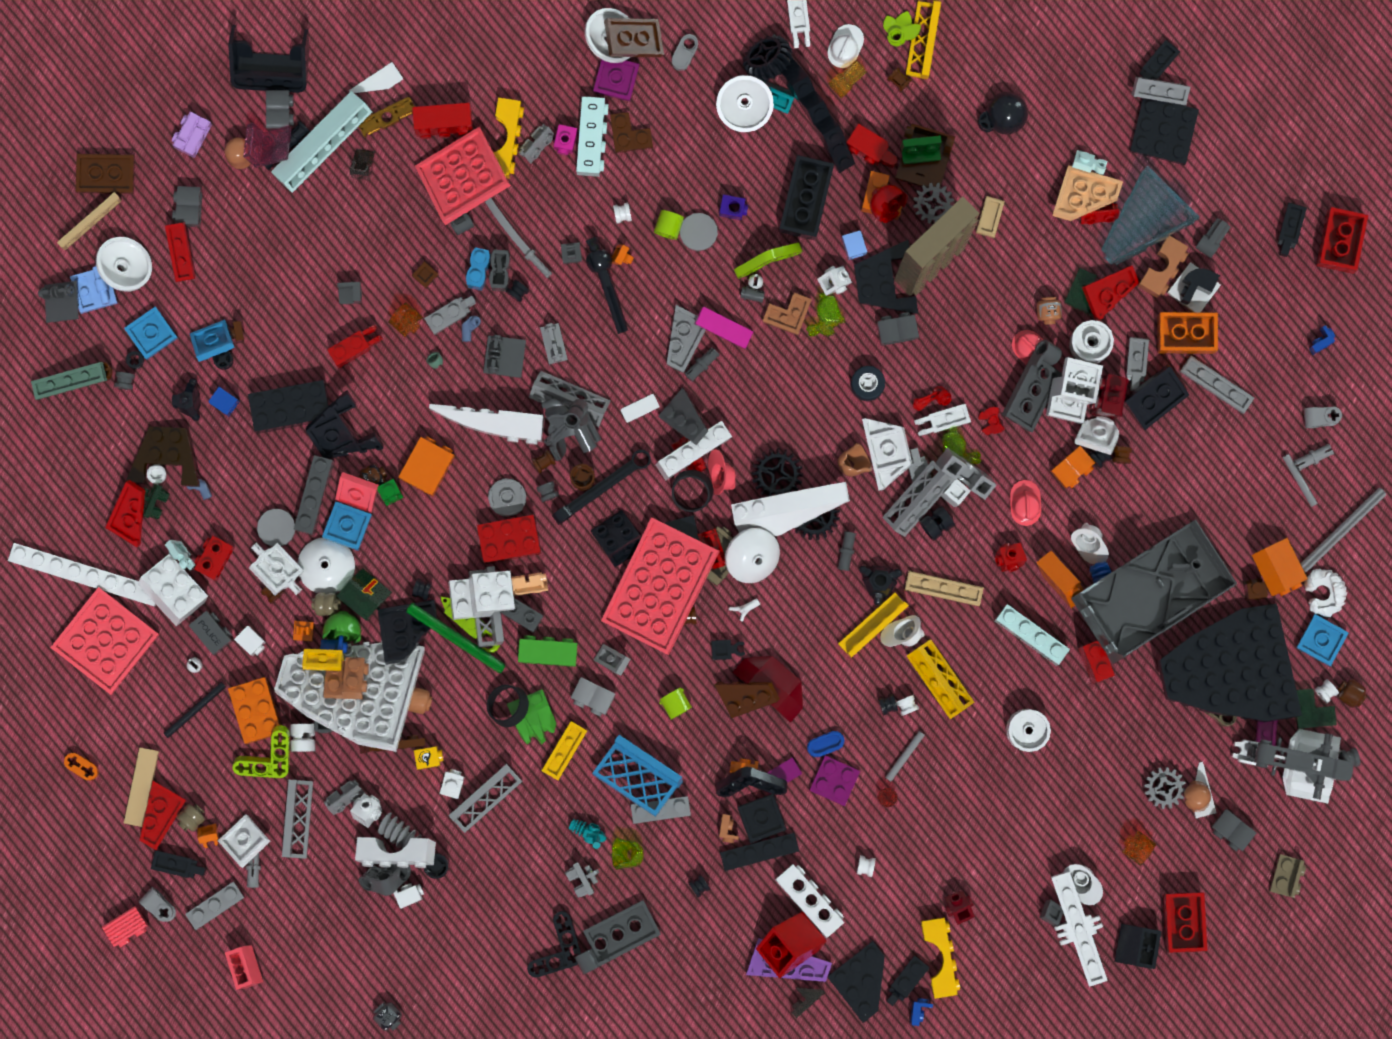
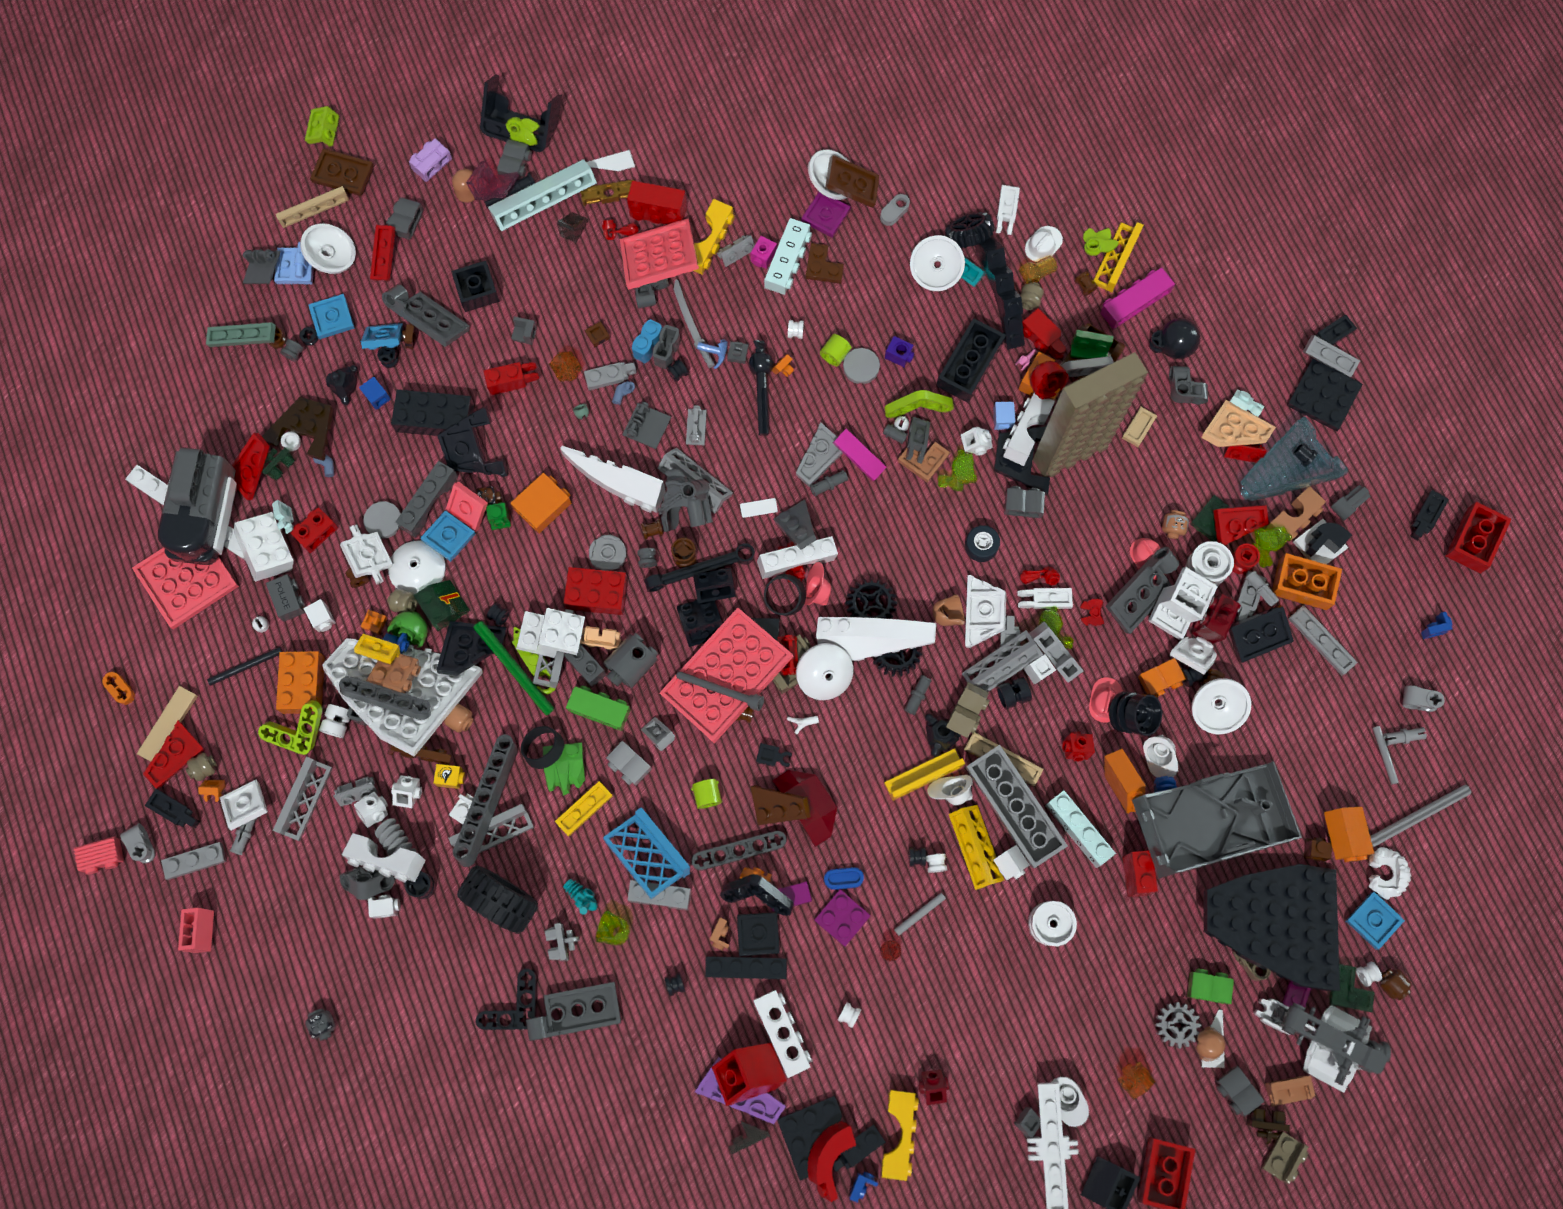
camera: 20 degrees right, 10 degrees down
(65, 128) = (322, 126): none -> lime bracket
(99, 574) = (197, 507): none -> piece
(215, 301) = (398, 301): none -> dark grey hinge
(279, 79) = (523, 131): none -> lime plate
(287, 261) = (475, 286): none -> black brick
(339, 700) = (391, 704): none -> dark grey beam
(393, 784) = (406, 791): none -> white brick
(401, 154) = (628, 230): none -> red piece
(476, 778) = (487, 808): none -> dark grey beam
(515, 858) = (497, 899): none -> black tyre
(555, 259) = (720, 351): none -> medium blue plant
(559, 604) = (624, 666): none -> dark grey cylinder
(621, 501) = (714, 585): none -> black brick
(696, 606) = (754, 701): none -> dark grey piece
(711, 748) = (731, 857): none -> dark grey beam
(776, 294) = (918, 438): none -> dark grey hinge
(847, 110) = (1031, 296): none -> dark tan piece
(860, 179) = (1025, 360): none -> bright pink hand
(878, 274) = (1021, 444): none -> white arch
(878, 993) = (823, 1155): none -> red arch
(896, 555) = (965, 714): none -> dark tan brick
(923, 172) = (1086, 366): none -> light grey beam
(954, 81) = (1137, 298): none -> dark pink brick
(966, 632) = (1016, 806): none -> light grey brick
(977, 685) = (1012, 863): none -> white brick
(1018, 156) = (1193, 391): none -> dark grey piece
(1055, 511) = (1135, 713): none -> black wheel
(1123, 326) = (1245, 558): none -> red wheel
(1138, 488) = (1228, 713): none -> white dish
(1141, 303) = (1270, 540): none -> clear neon green animal
(1147, 352) = (1262, 588): none -> light grey axle
(1157, 203) = (1305, 454): none -> black piece
(1186, 745) = (1210, 987): none -> bright green brick
(1273, 848) = (1277, 1123): none -> dark brown hips
(1278, 816) = (1290, 1090): none -> nougat hinge

